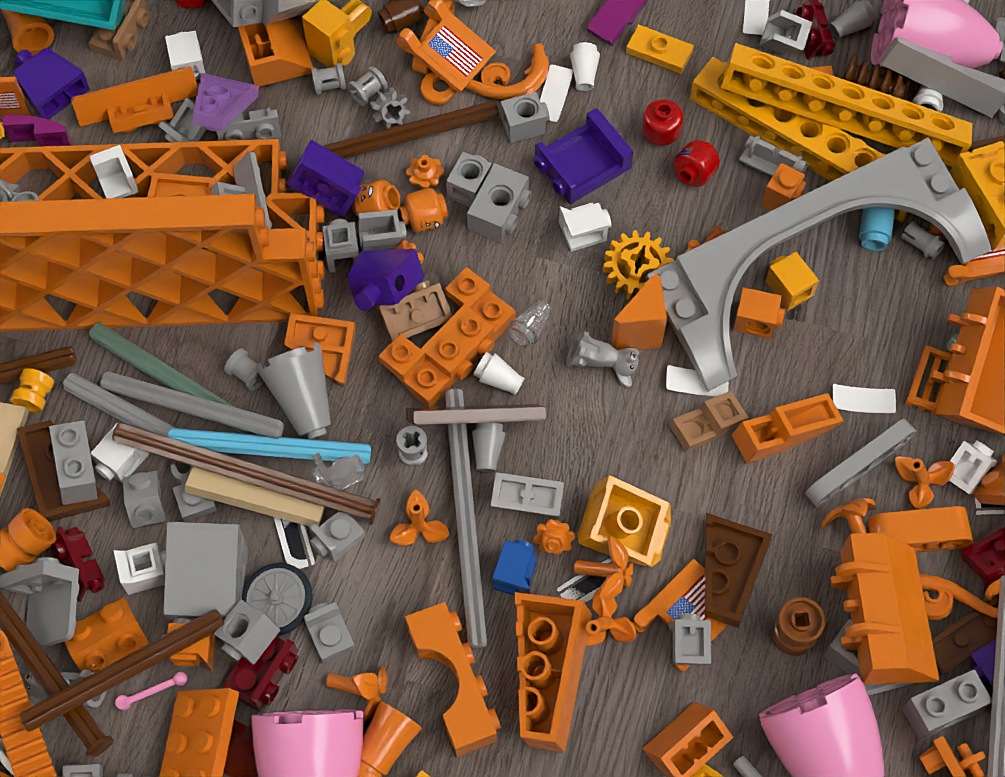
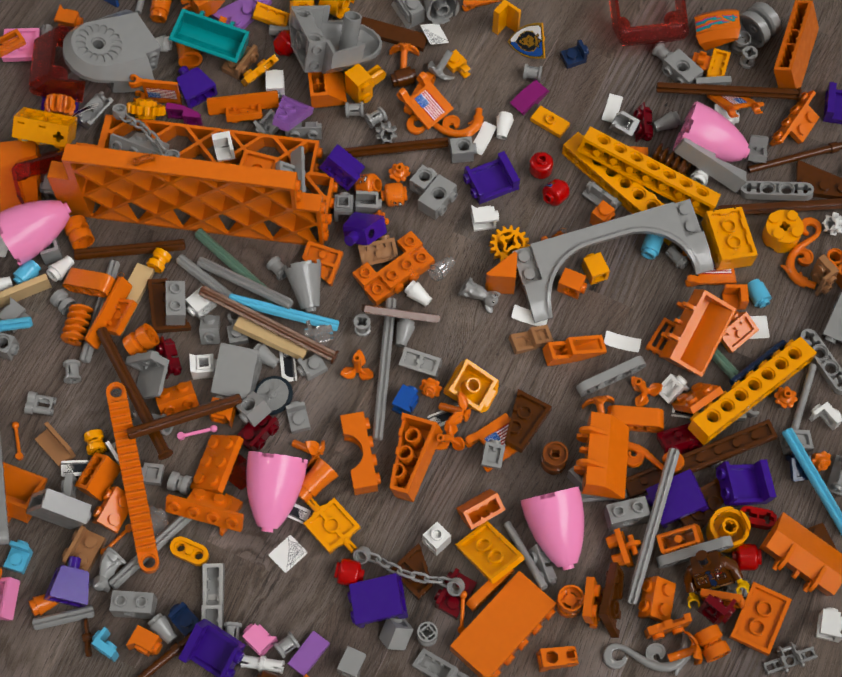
camera: 10 degrees right, 0 degrees up
(162, 27) = (262, 66): none -> light orange wing
(253, 529) = (267, 356): none -> light grey cone

